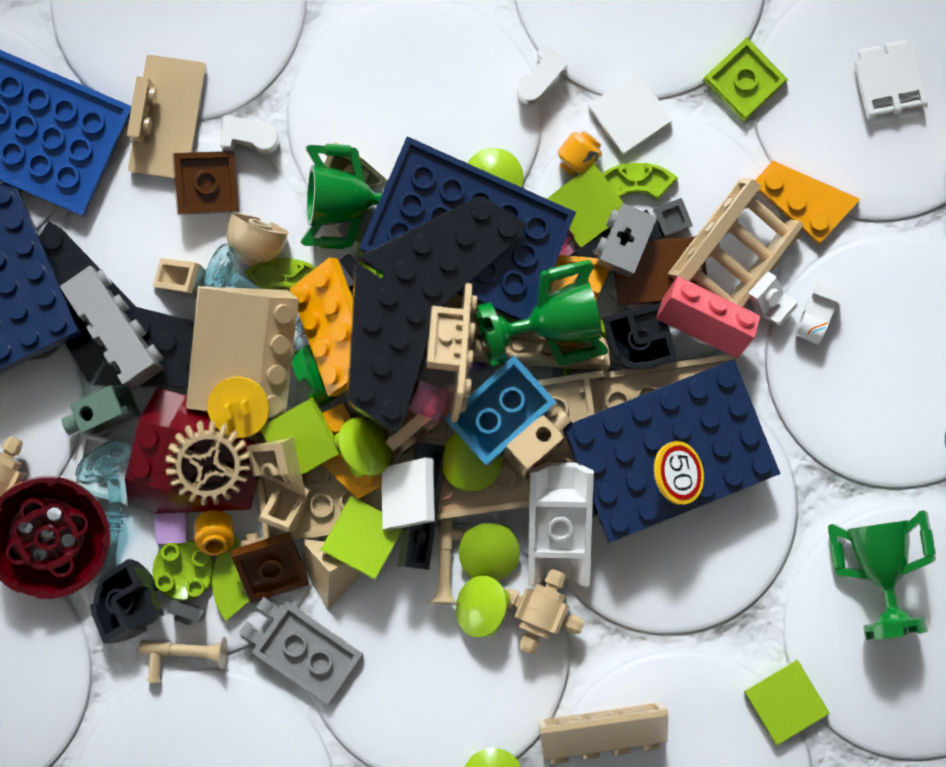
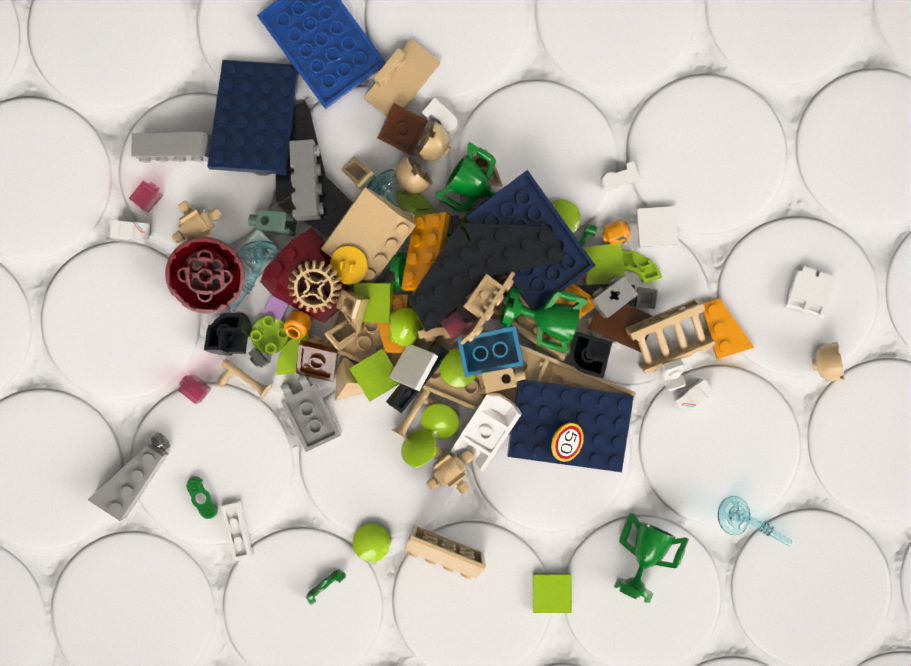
camera: 15 degrees right, 5 degrees up
(119, 707) = (193, 388): none -> clear pink brick
(259, 176) = (434, 143): none -> tan cylinder
(541, 171) = (589, 230): none -> green hand
(708, 317) = (633, 365): coral brick -> none
(745, 79) = (731, 244): lime tile -> none

